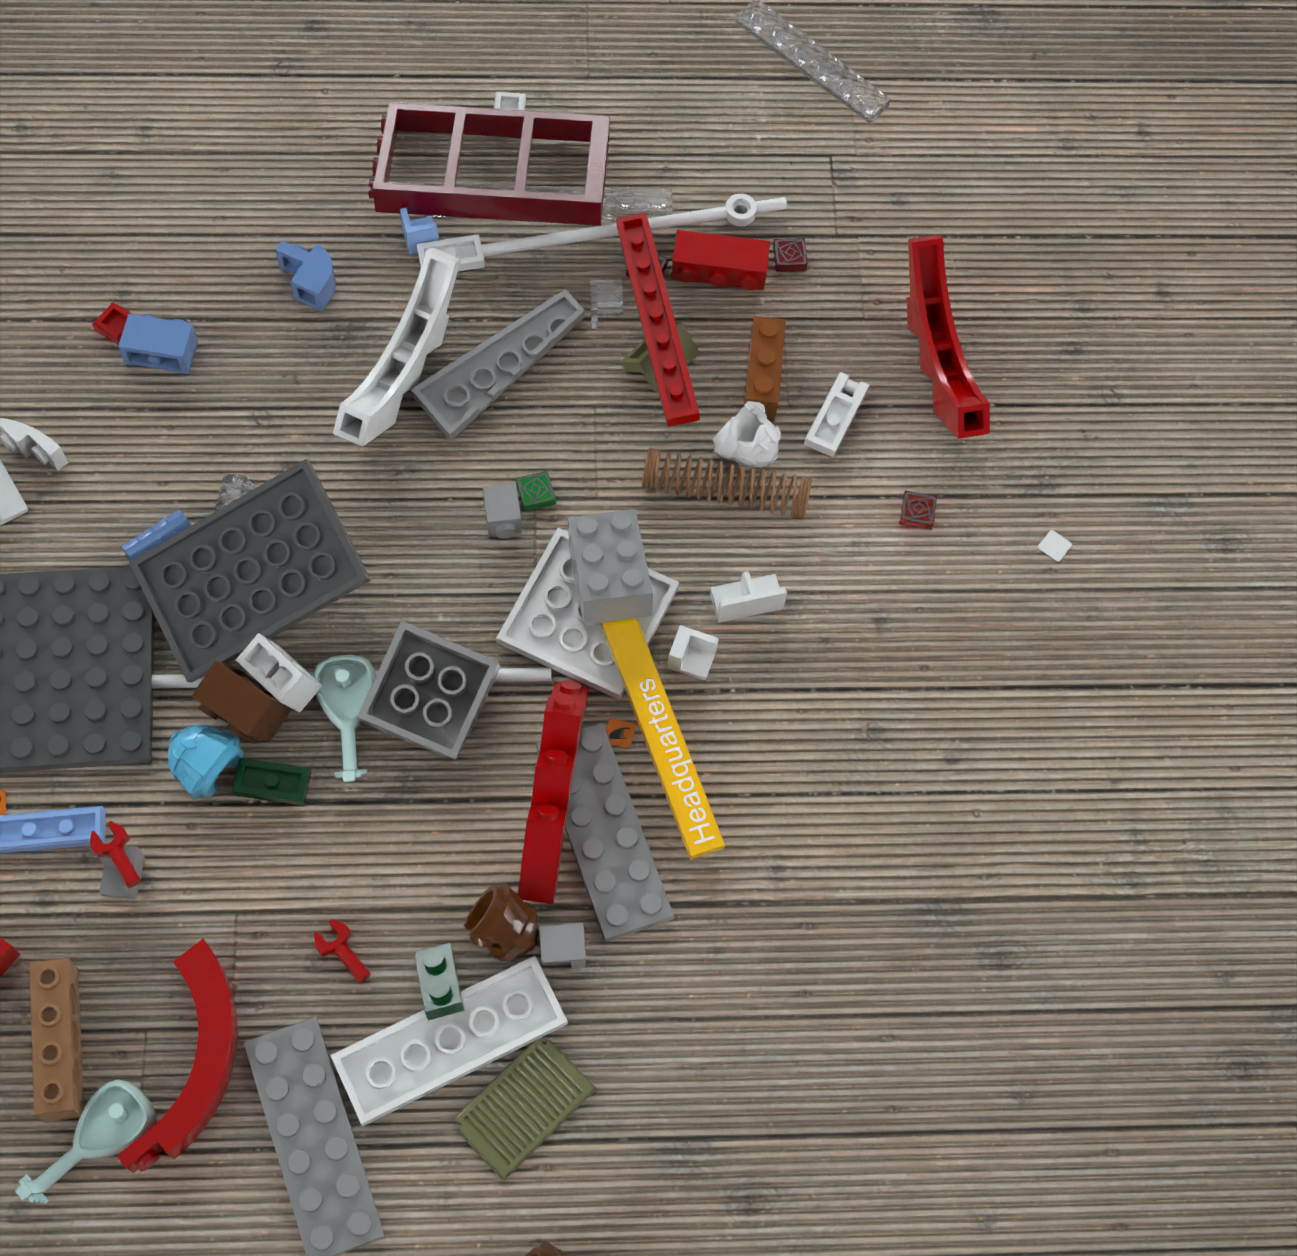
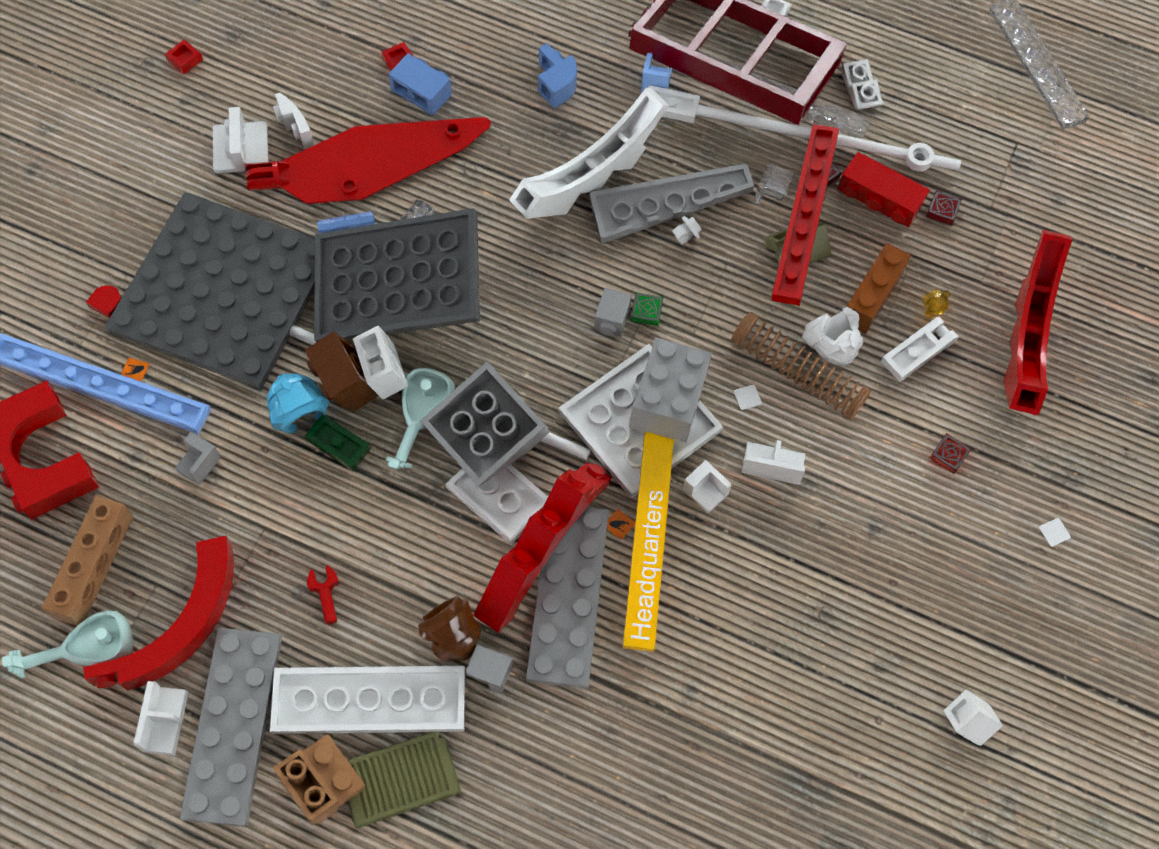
camera: 30 degrees right, 0 degrees up
(116, 853) = (196, 441): red bar -> none
(136, 455) = (365, 159): none -> red wing
(233, 1170) = (160, 719): none -> white panel
(439, 981) = (382, 651): plate -> none
(441, 1147) = (319, 779): none -> medium nougat brick
(488, 766) = (501, 502): none -> white tile
(538, 385) = (685, 231): none -> white plate
(641, 156) = (860, 84): none -> white slope
(686, 540) = (747, 397): none -> white sticker
(831, 358) = (936, 302): none -> clear yellow plate
(1065, 767) = (973, 718): none -> white panel

